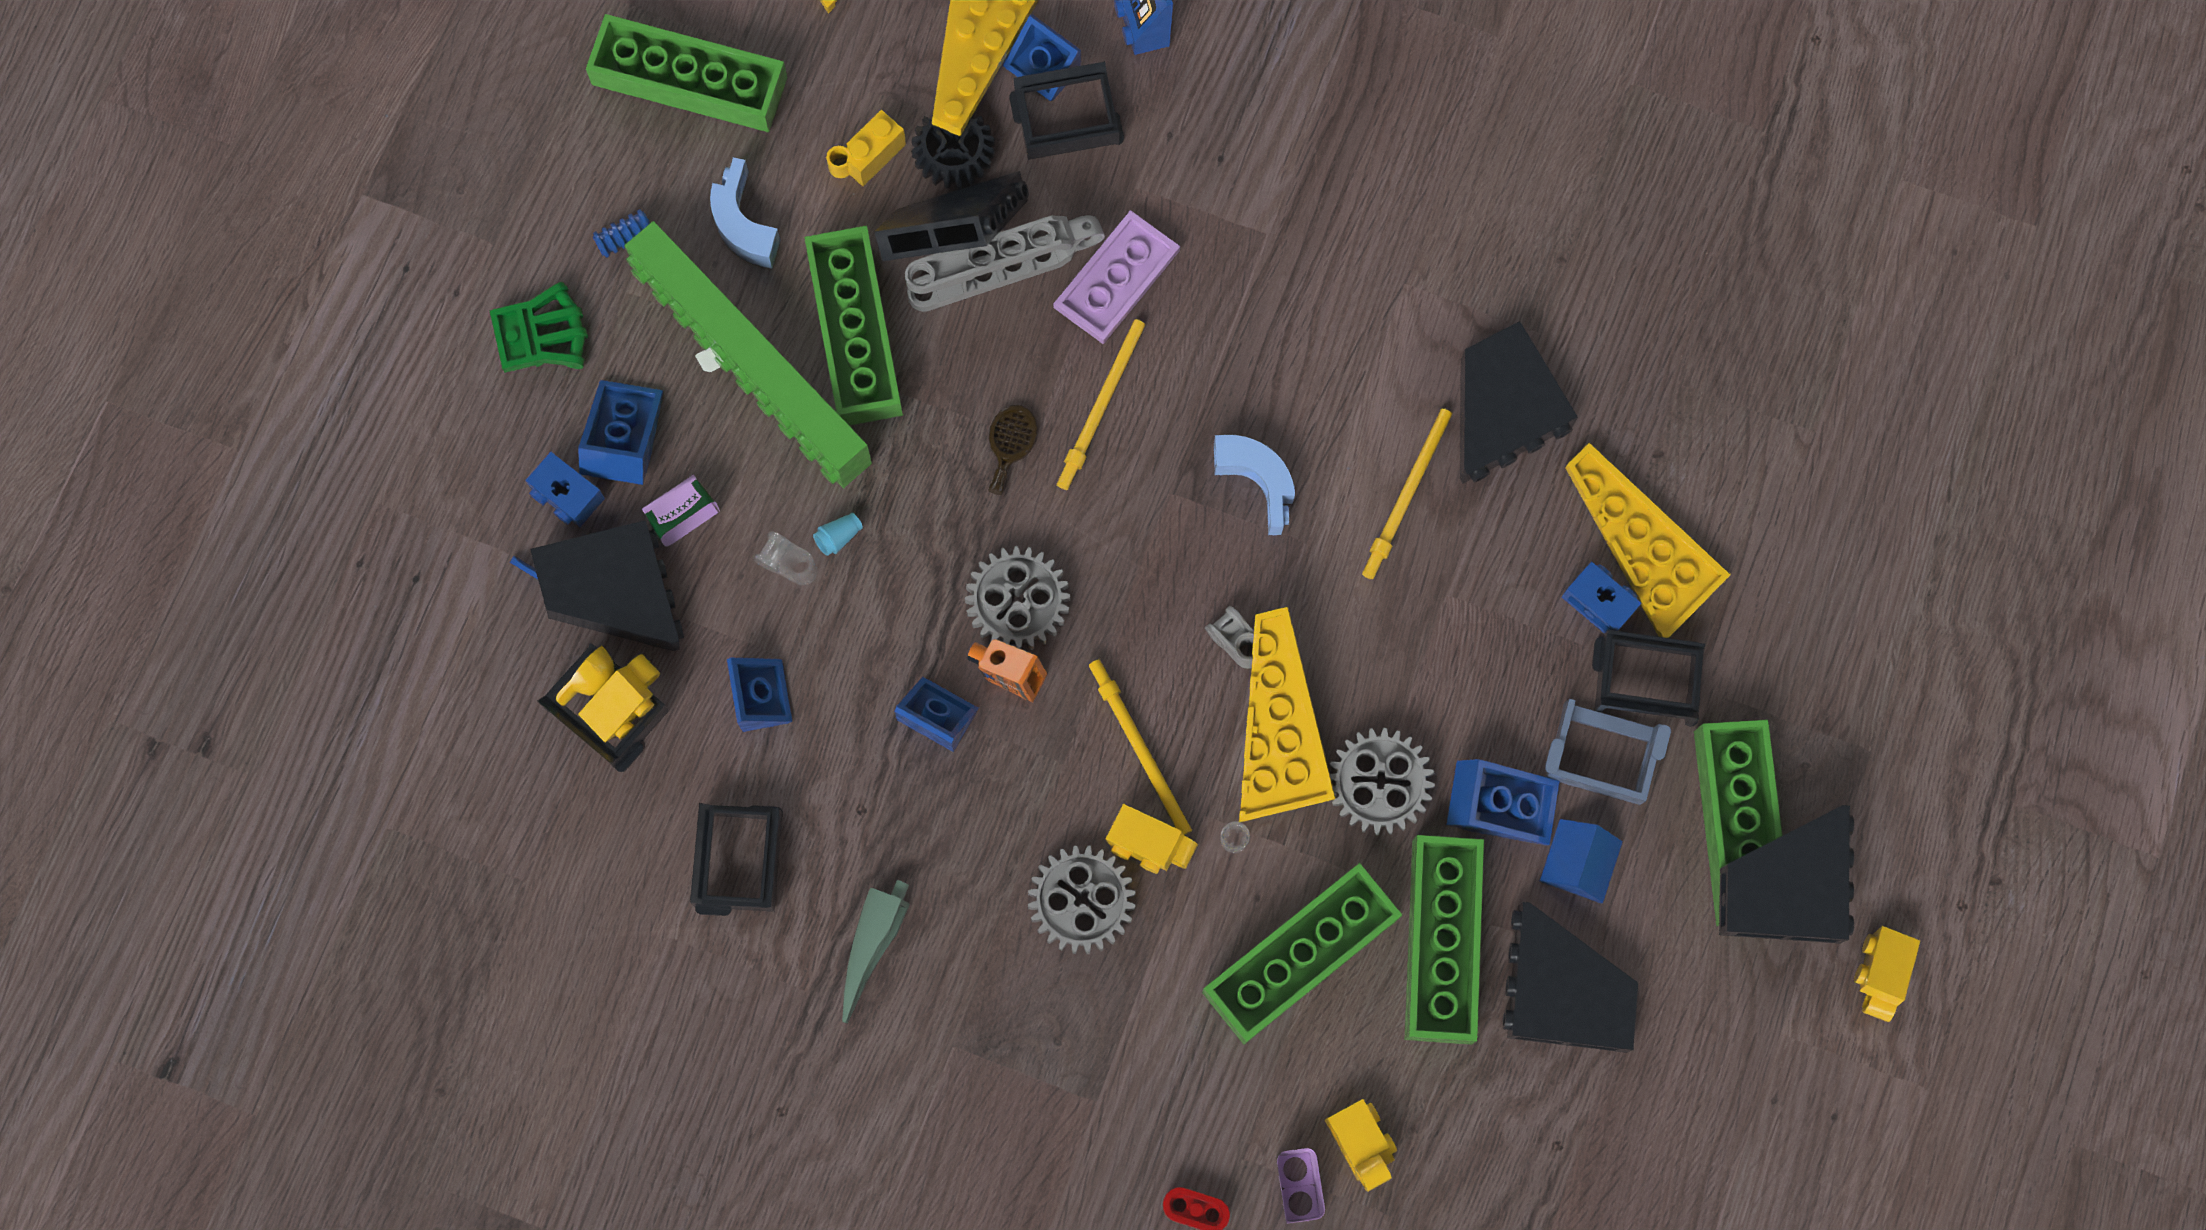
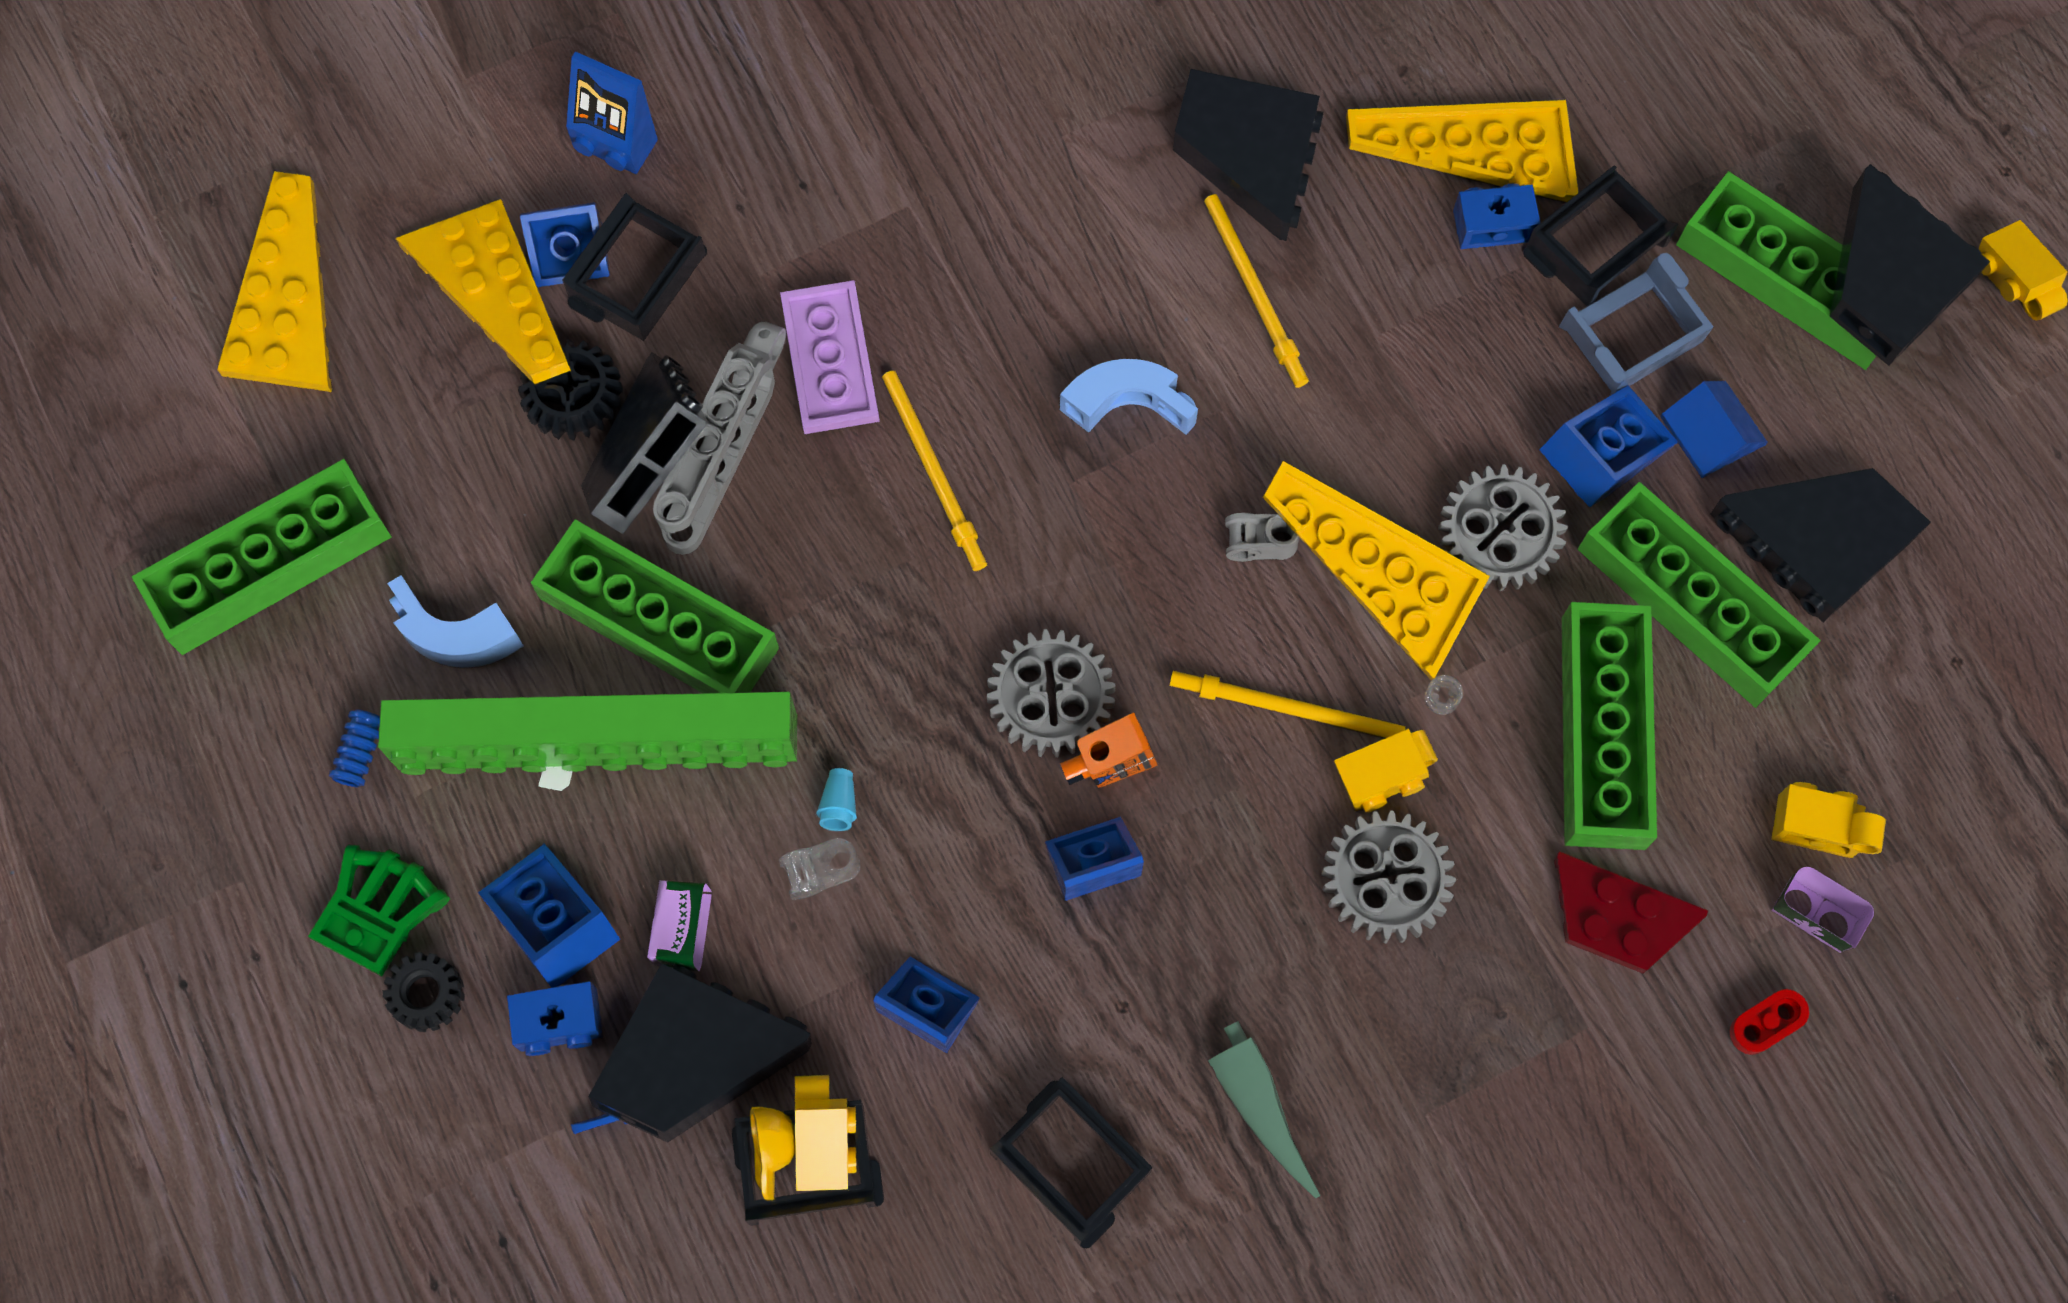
camera: 45 degrees left, 5 degrees down
(510, 386) = (441, 1009): none -> black tyre
(868, 149) = (498, 463): yellow hinge -> none
(1000, 474) = (916, 609): dark brown piece -> none
(1186, 1064) = (1620, 916): none -> dark red wing

